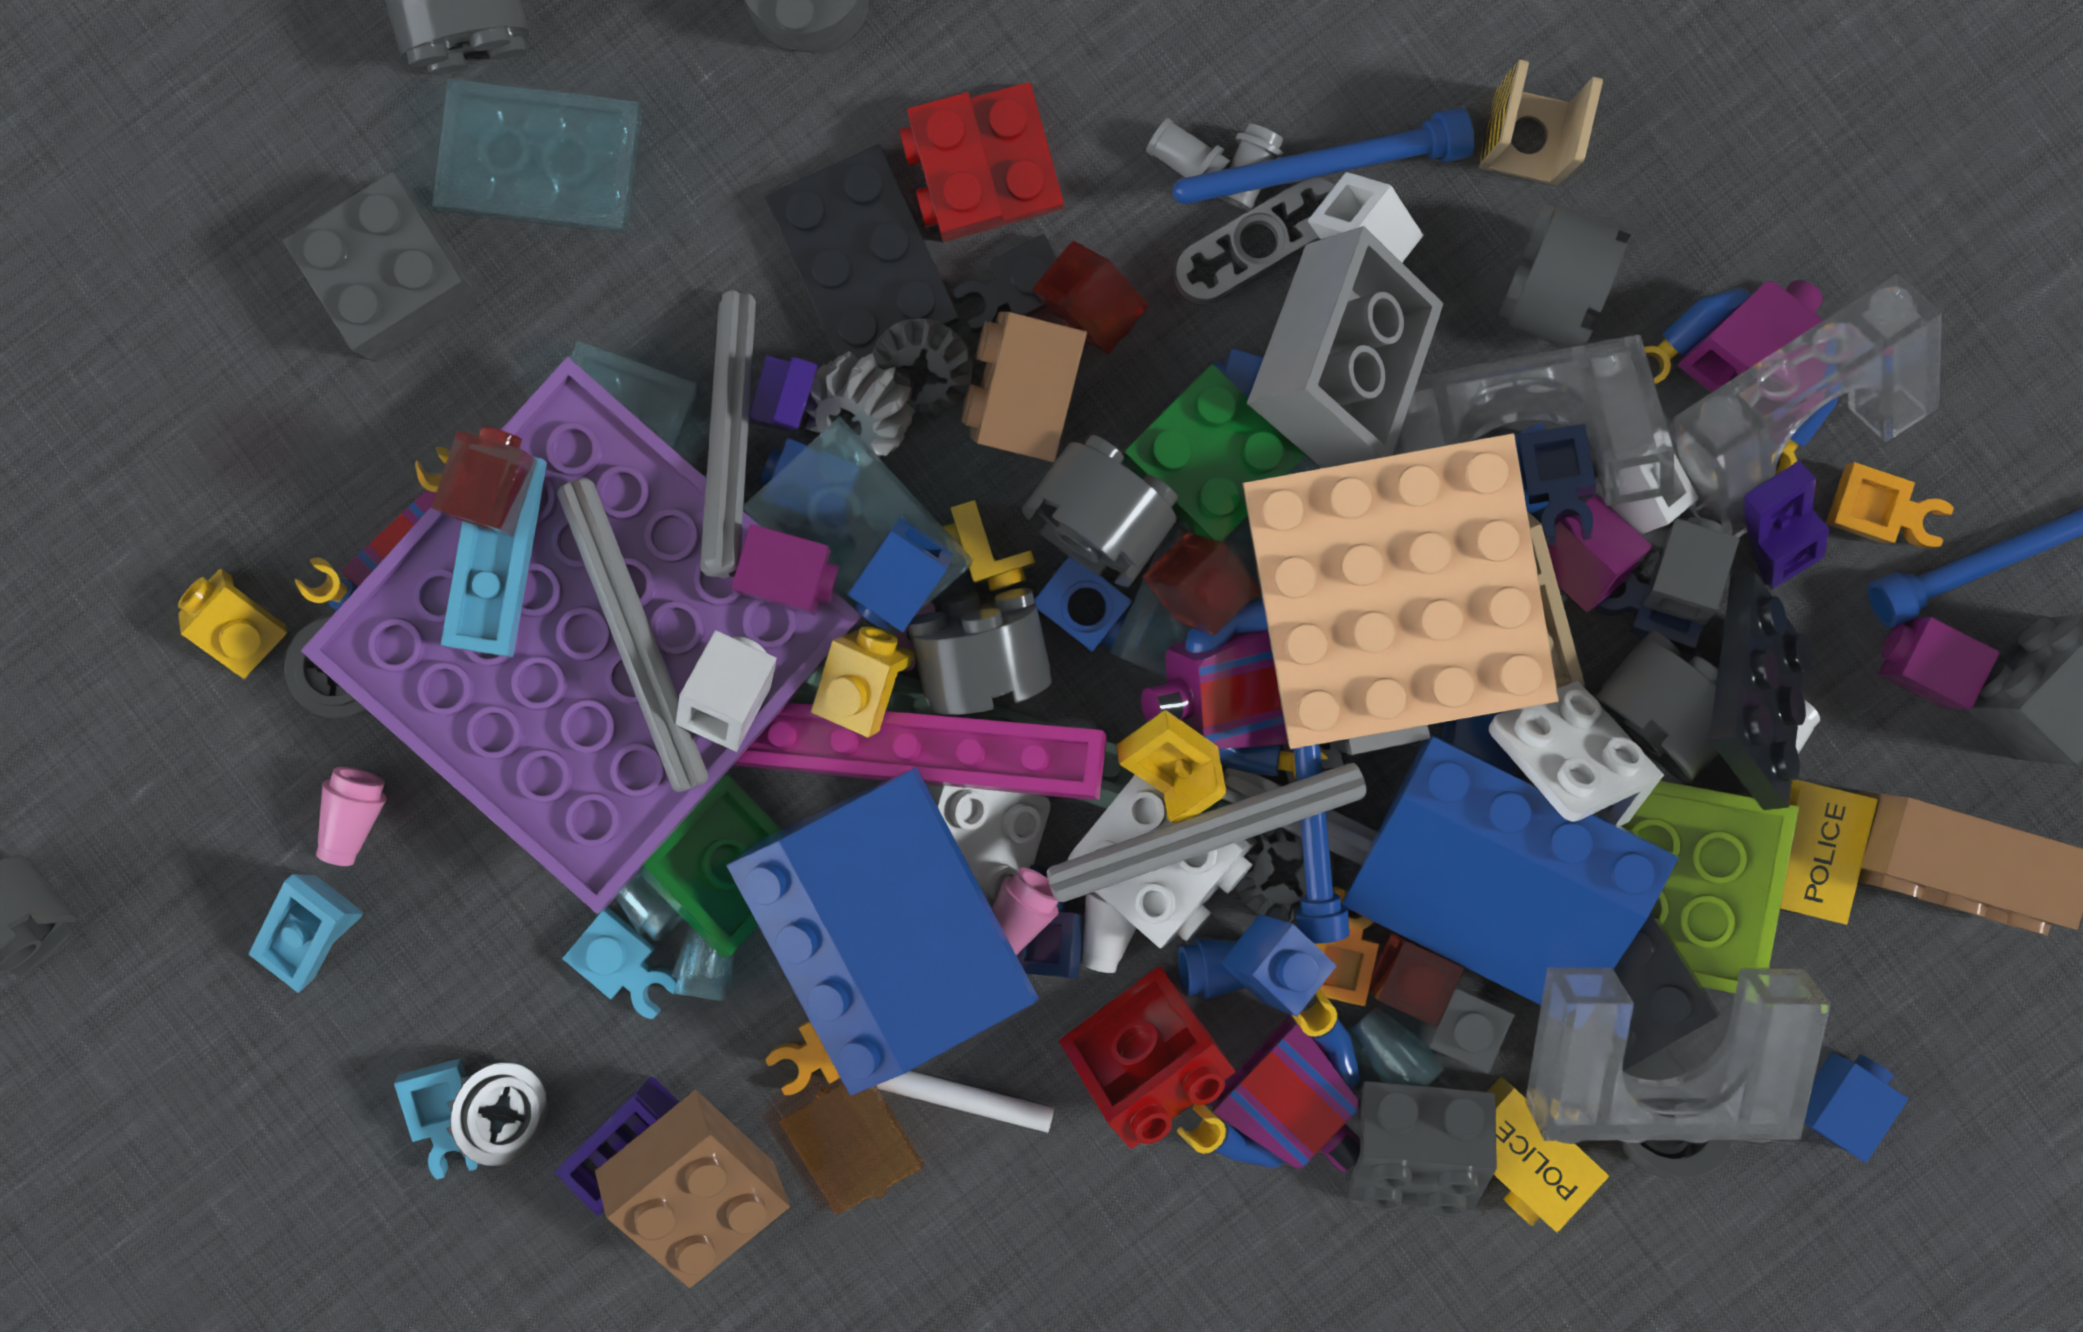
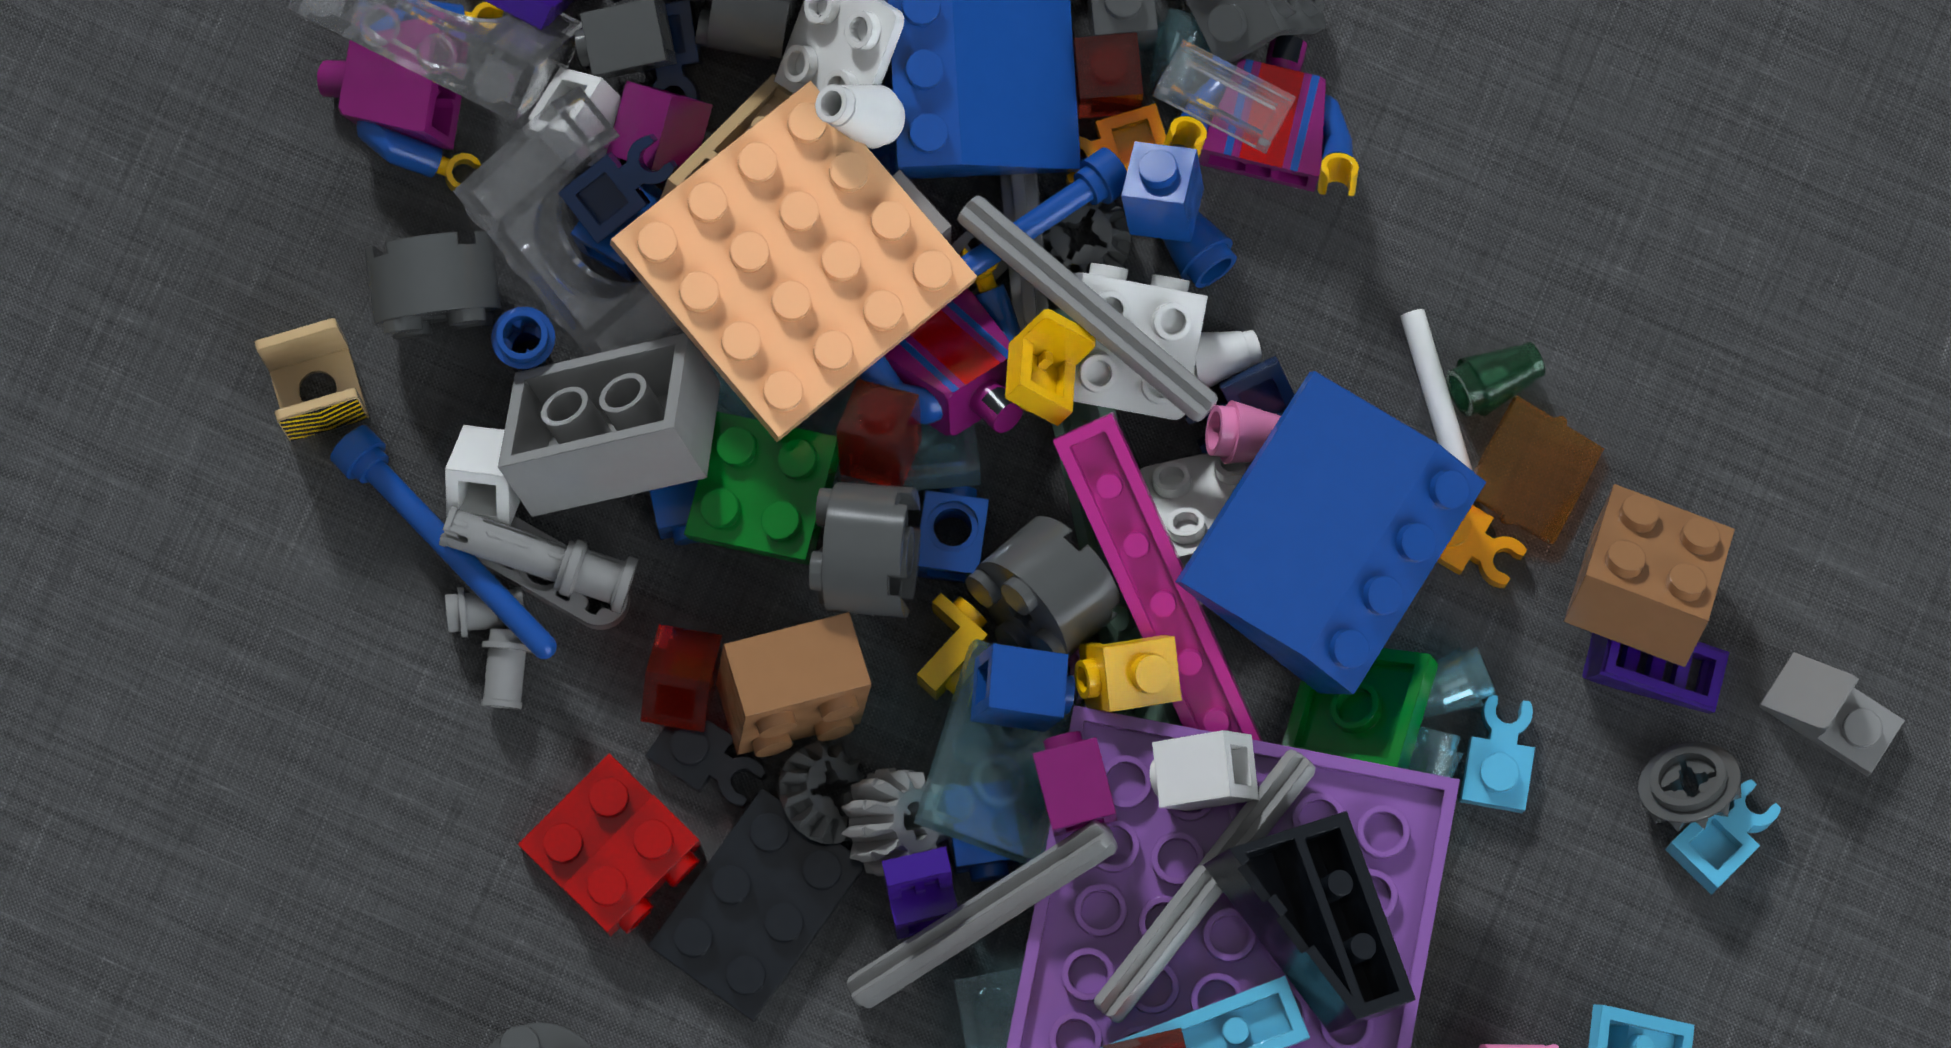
camera: 125 degrees left, 10 degrees down
(496, 1273) = (1831, 712): none -> light grey slope
(532, 714) = (1318, 918): none -> black wedge
(951, 1156) = (1492, 378): none -> clear green cone
(1147, 1059) = (1307, 258): red plate -> none
(1243, 250) = (570, 567): none -> light grey pin
(1332, 1070) = (1224, 96): none -> clear tile
(1478, 316) = (519, 326): none -> blue cone
(1501, 730) = (862, 112): none -> white cone

